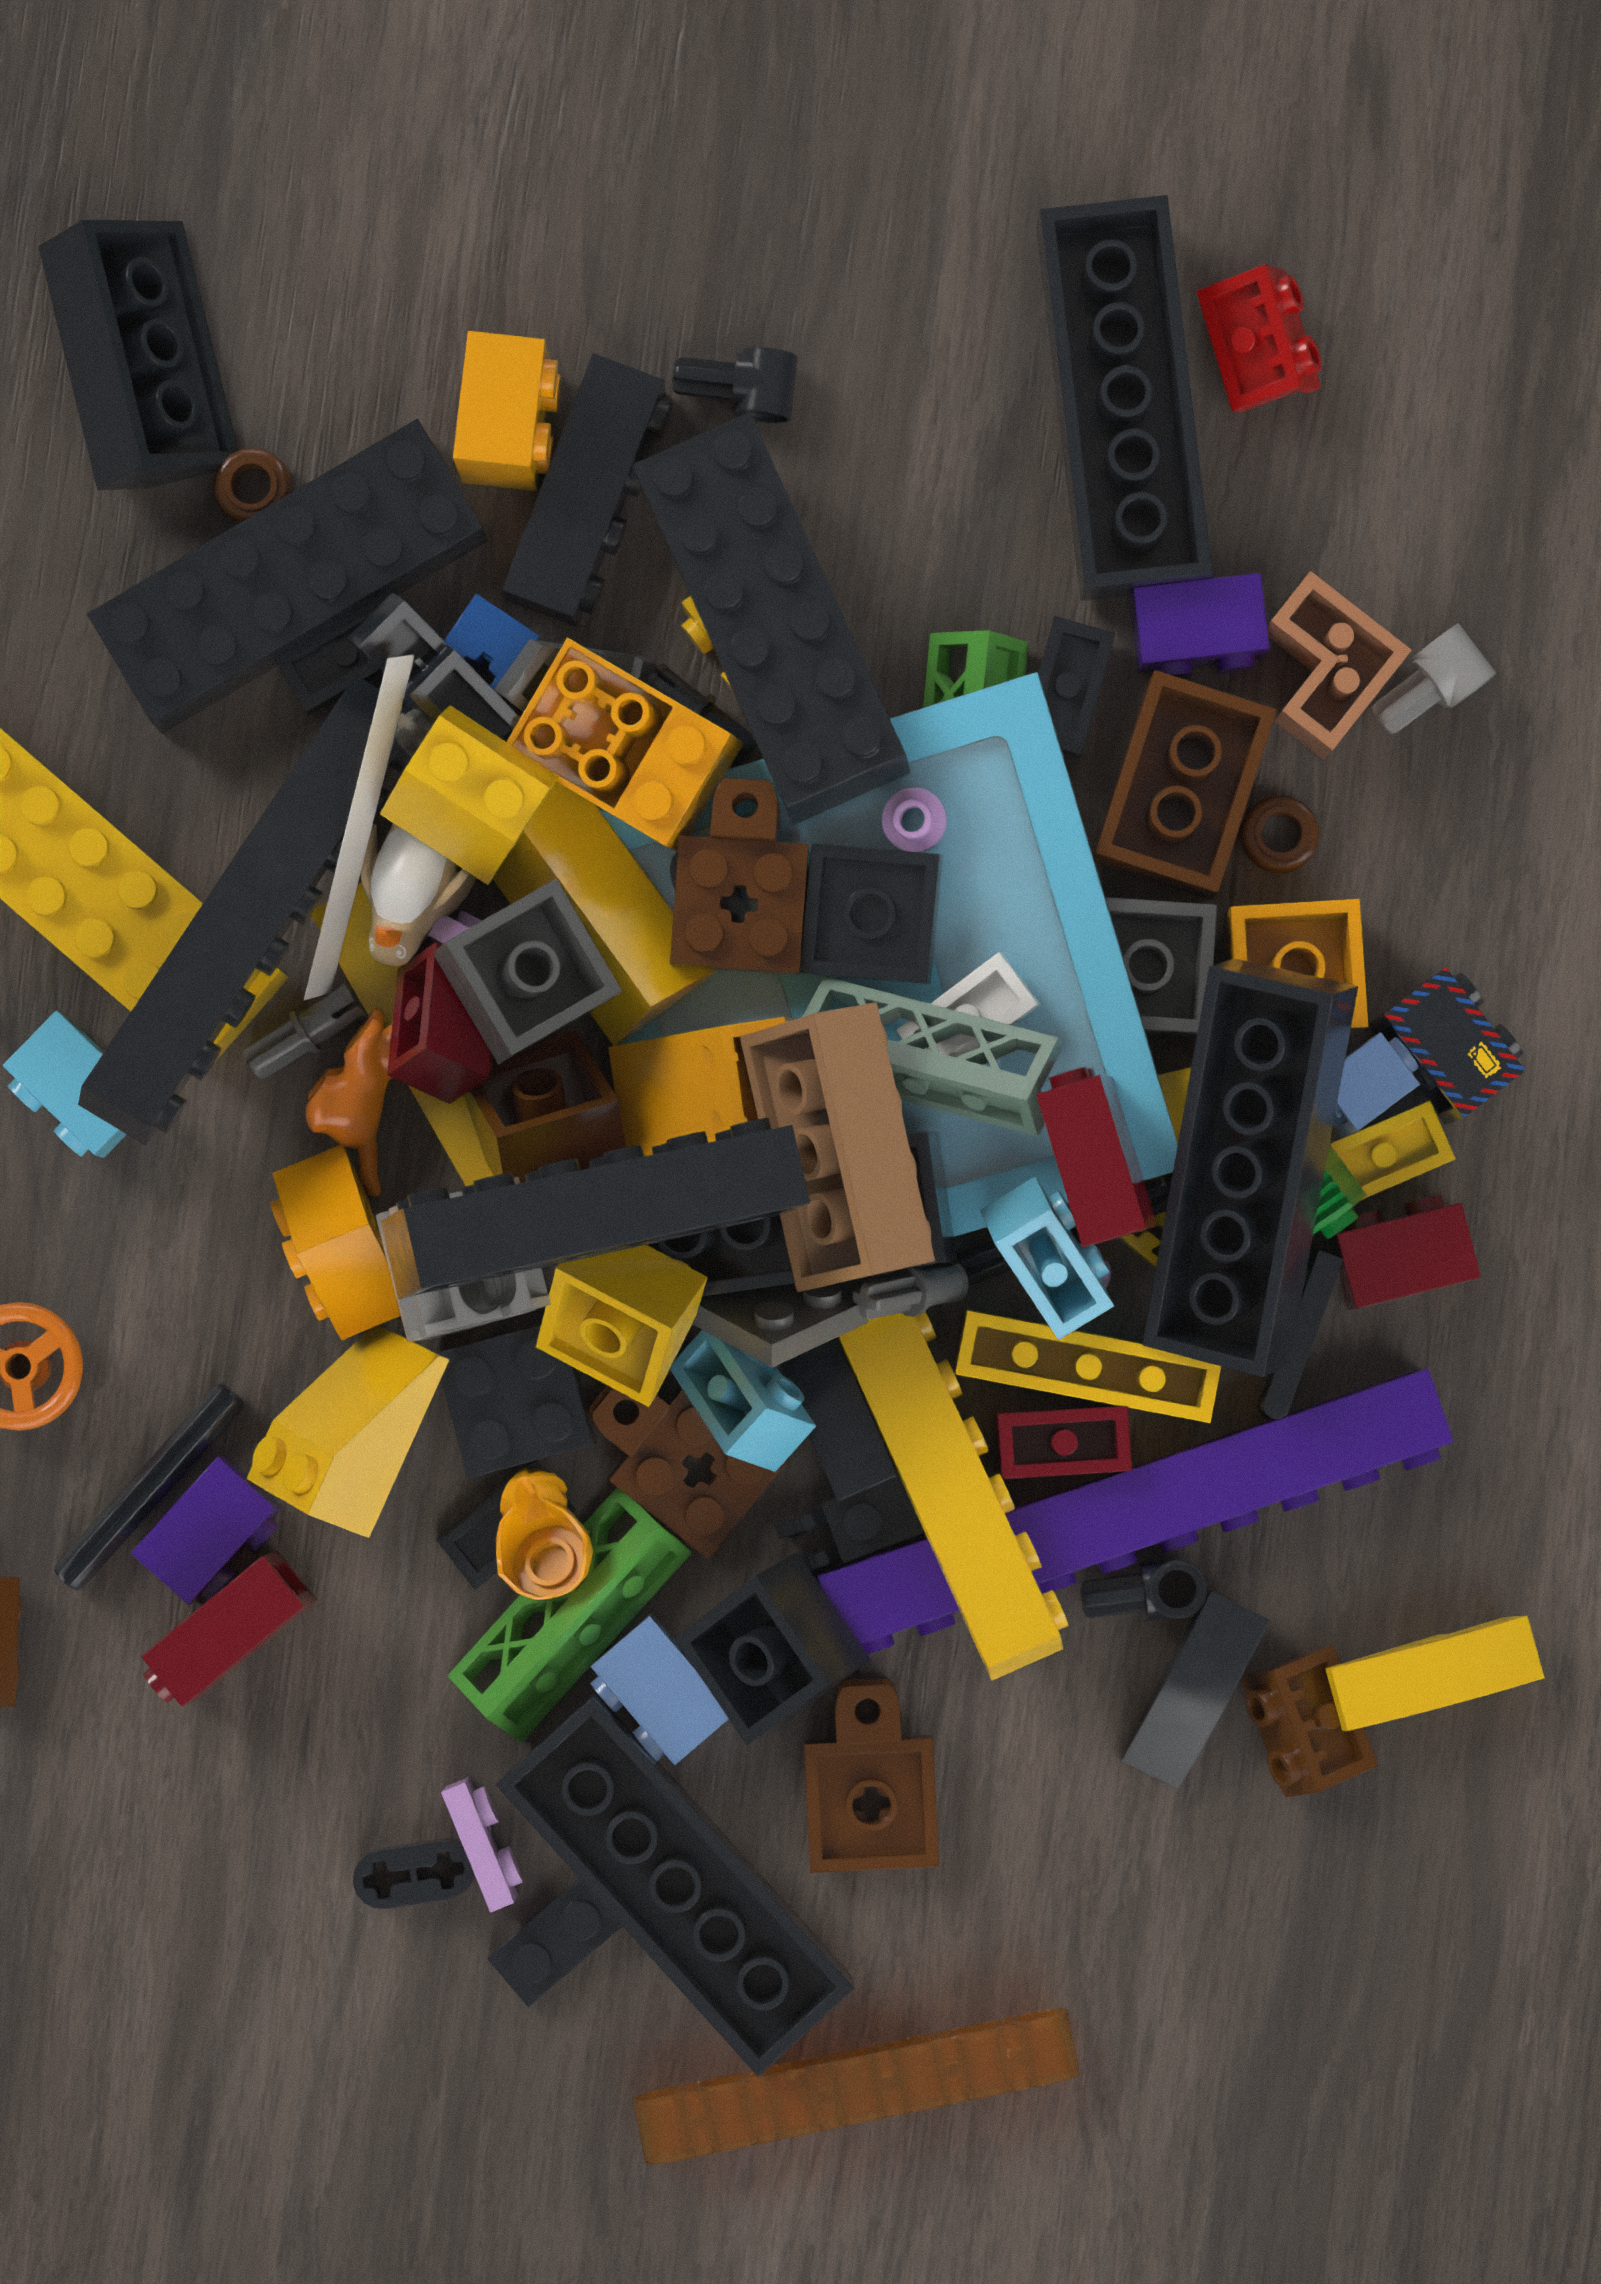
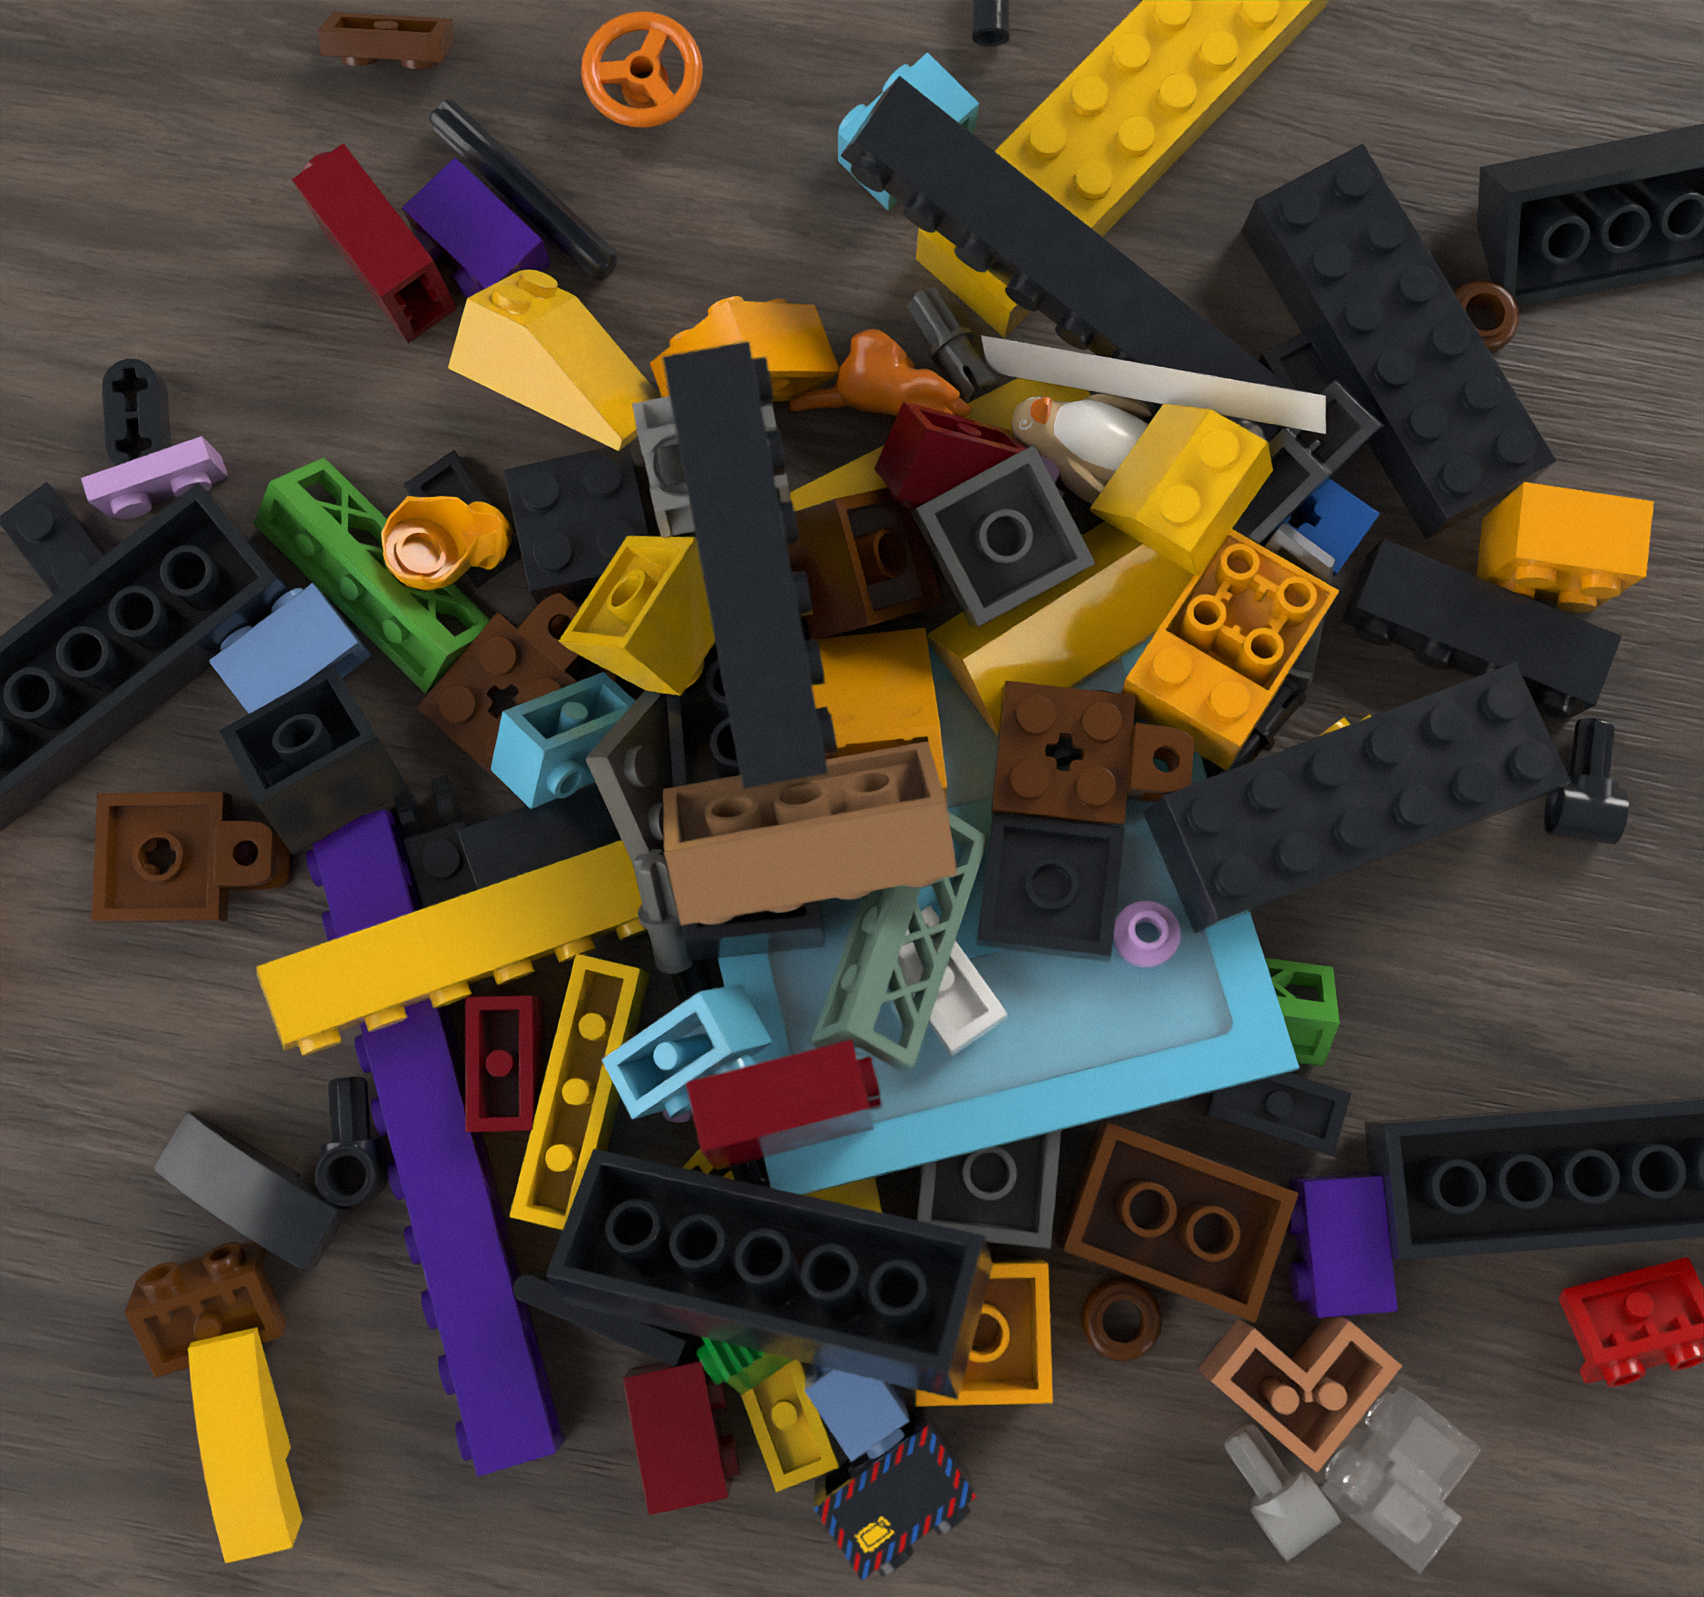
camera: 90 degrees right, 5 degrees down
(1411, 567) = (1402, 1475): none -> clear brick

